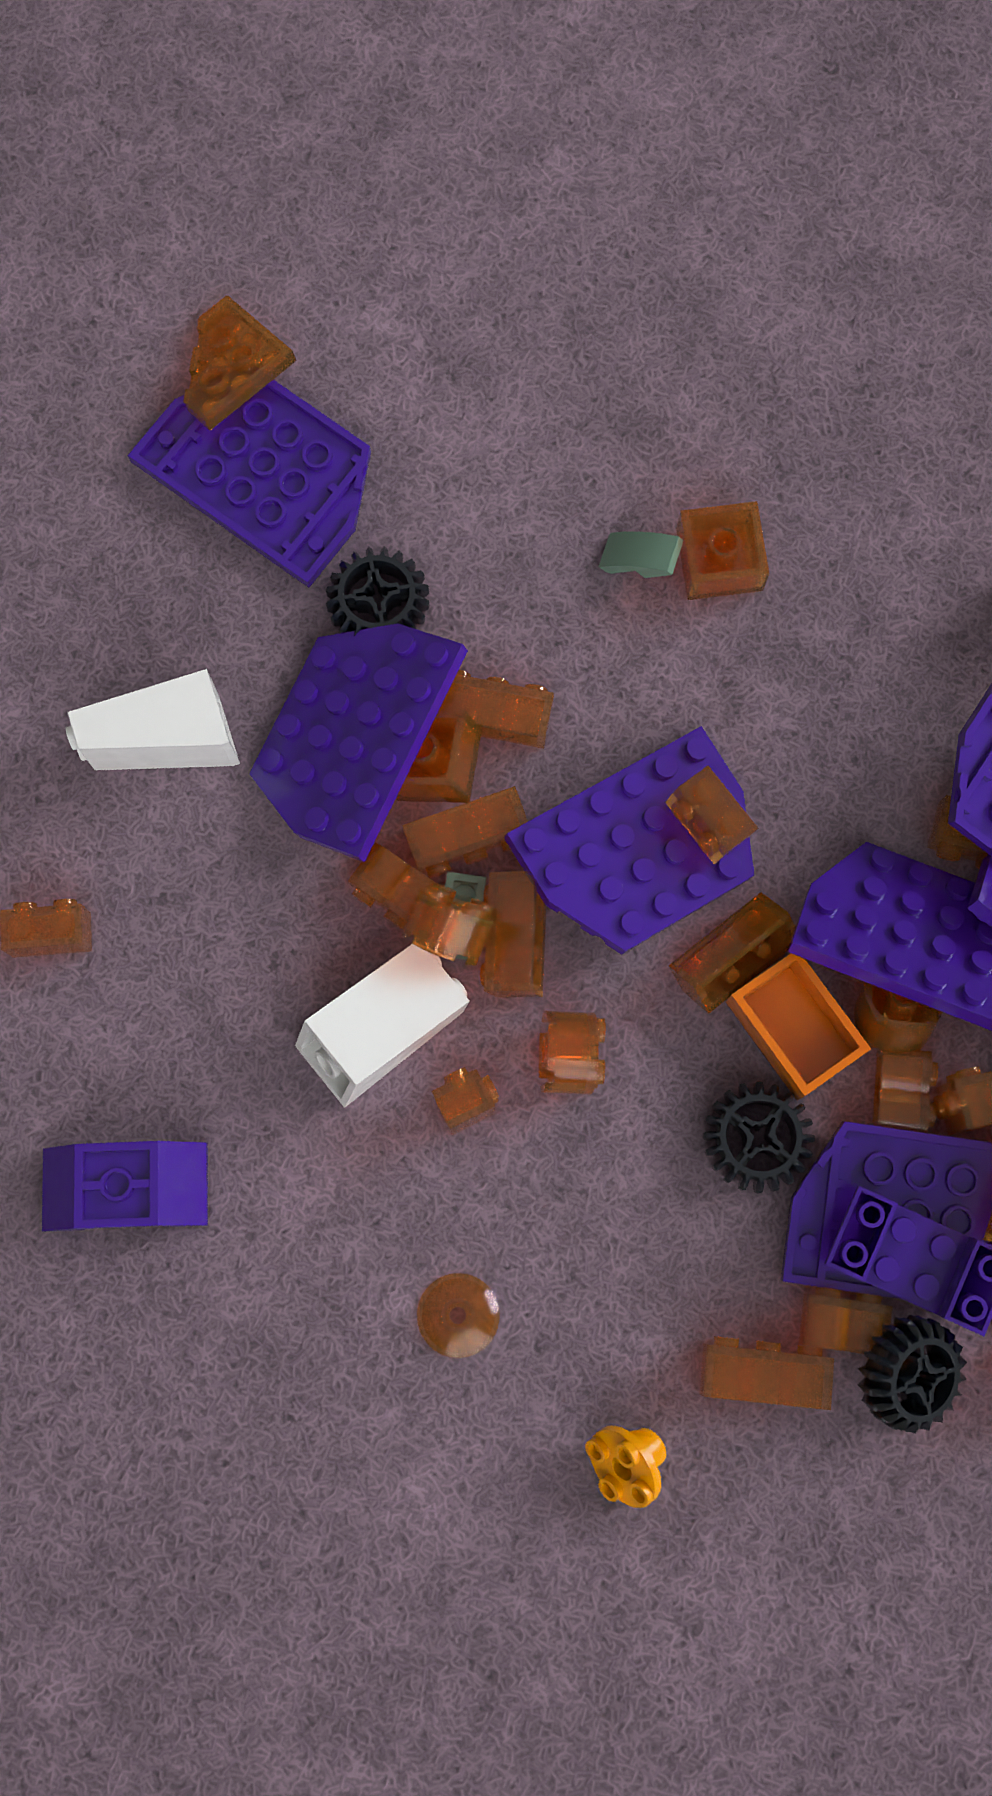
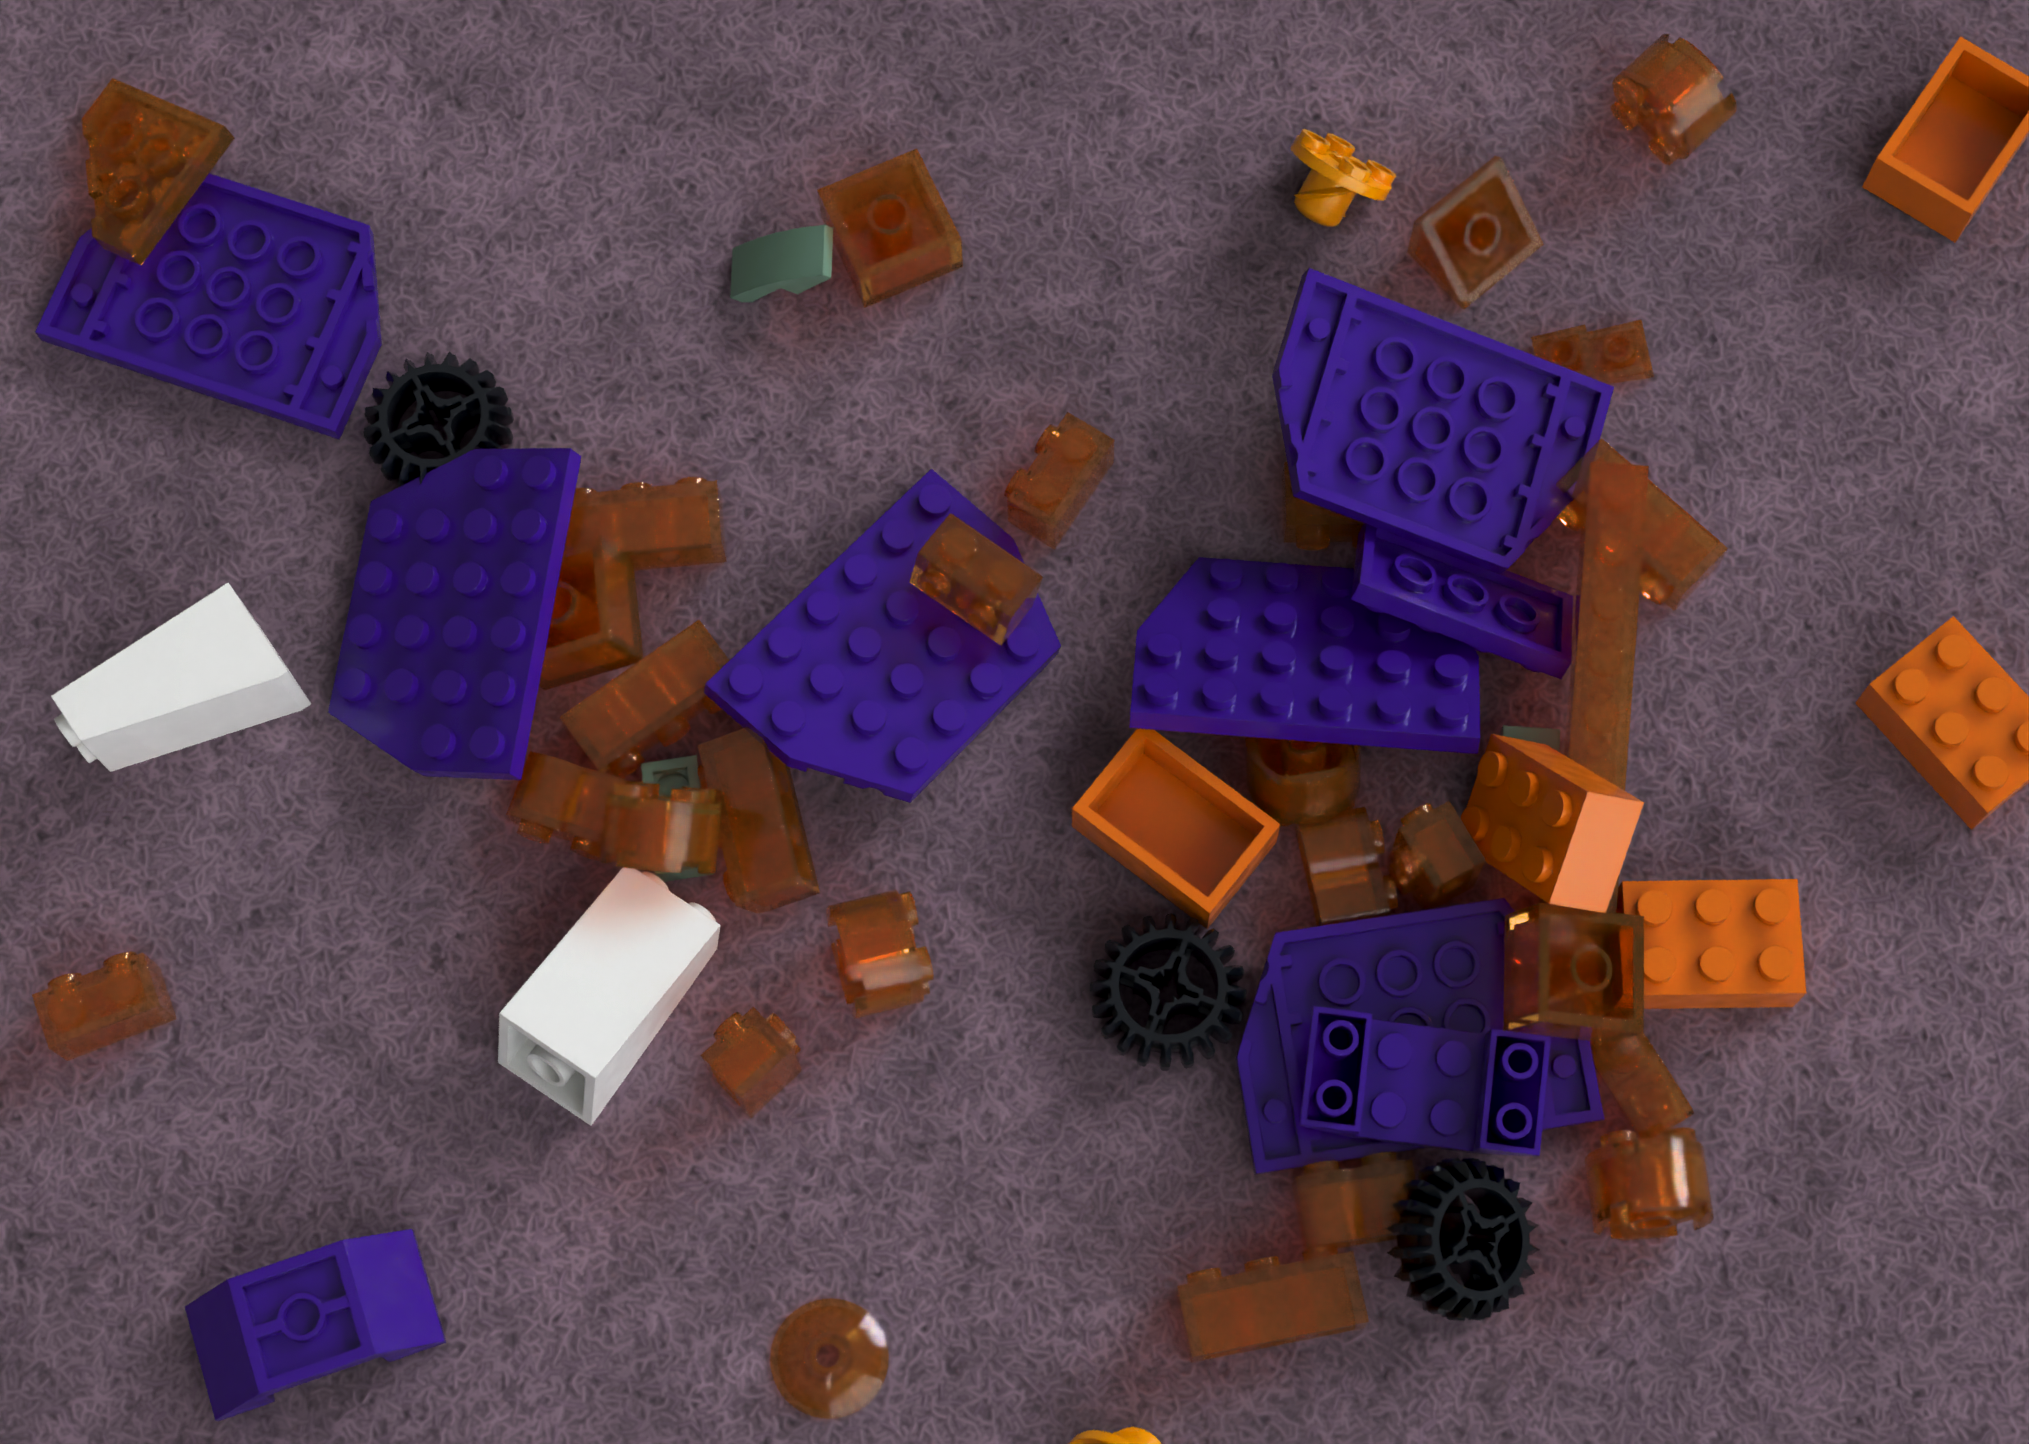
camera: 15 degrees left, 5 degrees down
(734, 952) = (1061, 754): clear orange brick -> none
(788, 760) = (1060, 479): none -> clear orange brick

